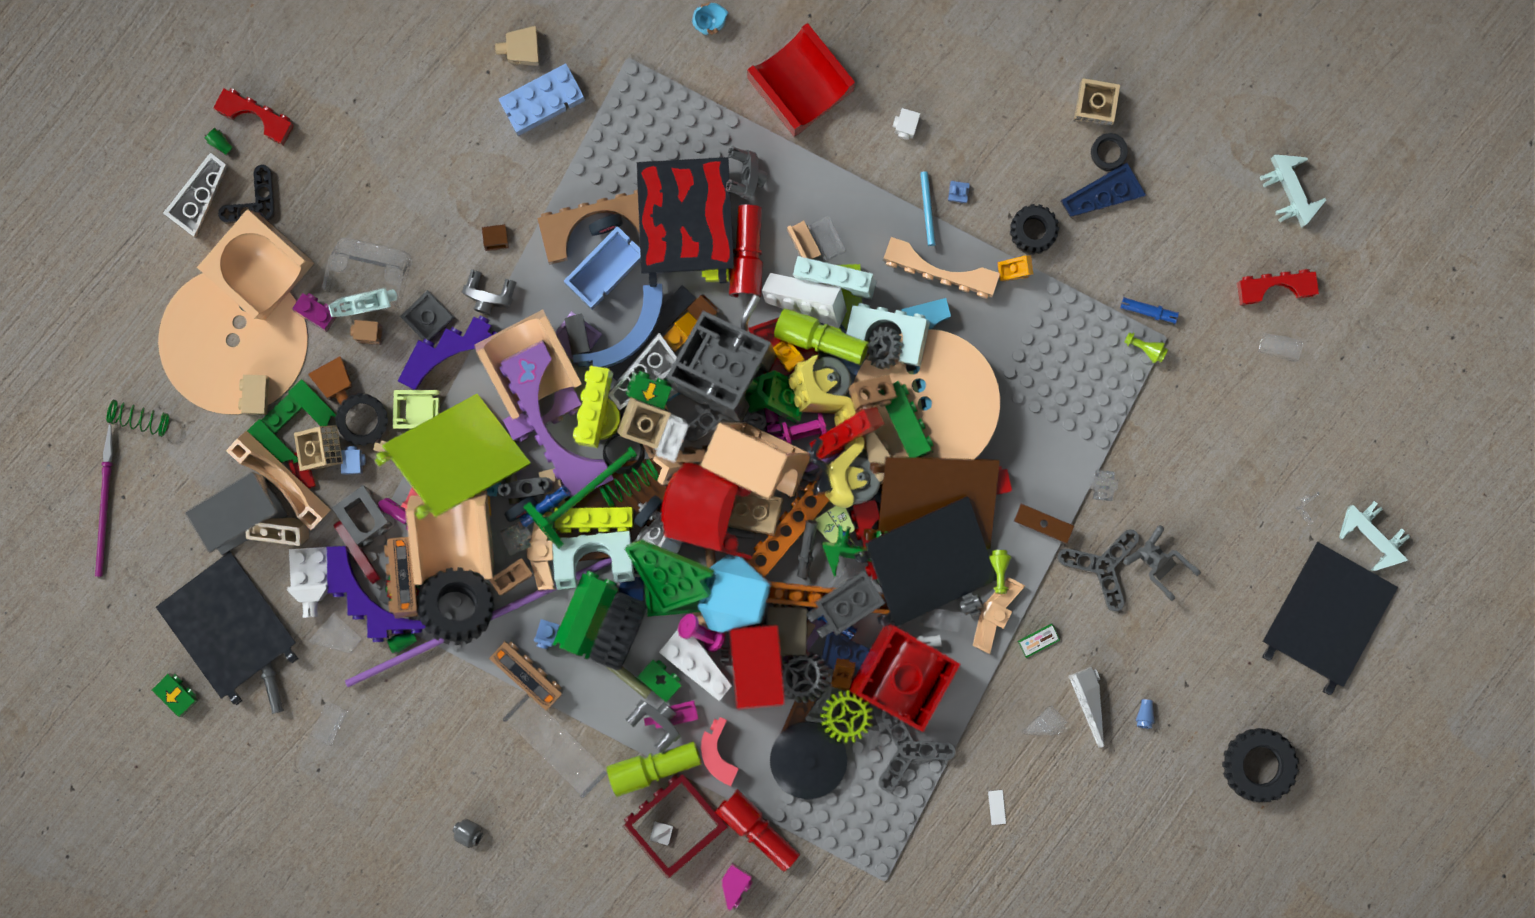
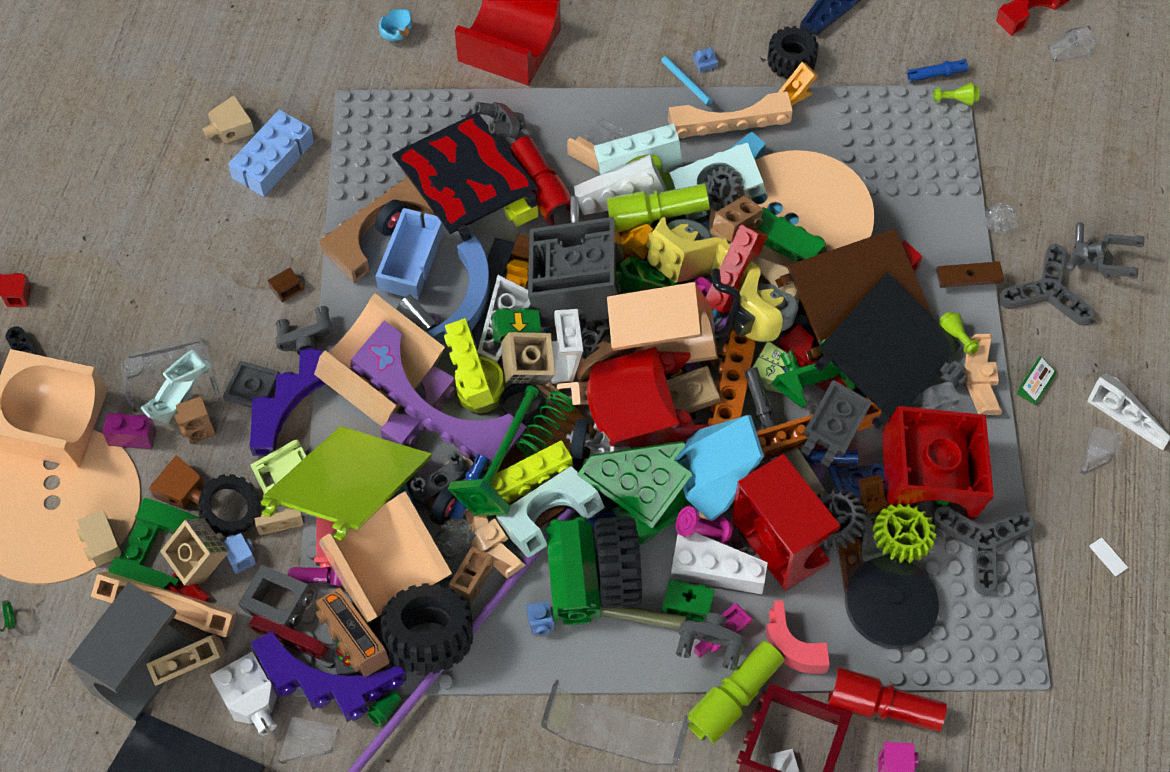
camera: 25 degrees left, 25 degrees down
(526, 676) = (541, 668): brick -> none
(906, 124) = (624, 27): white brick -> none

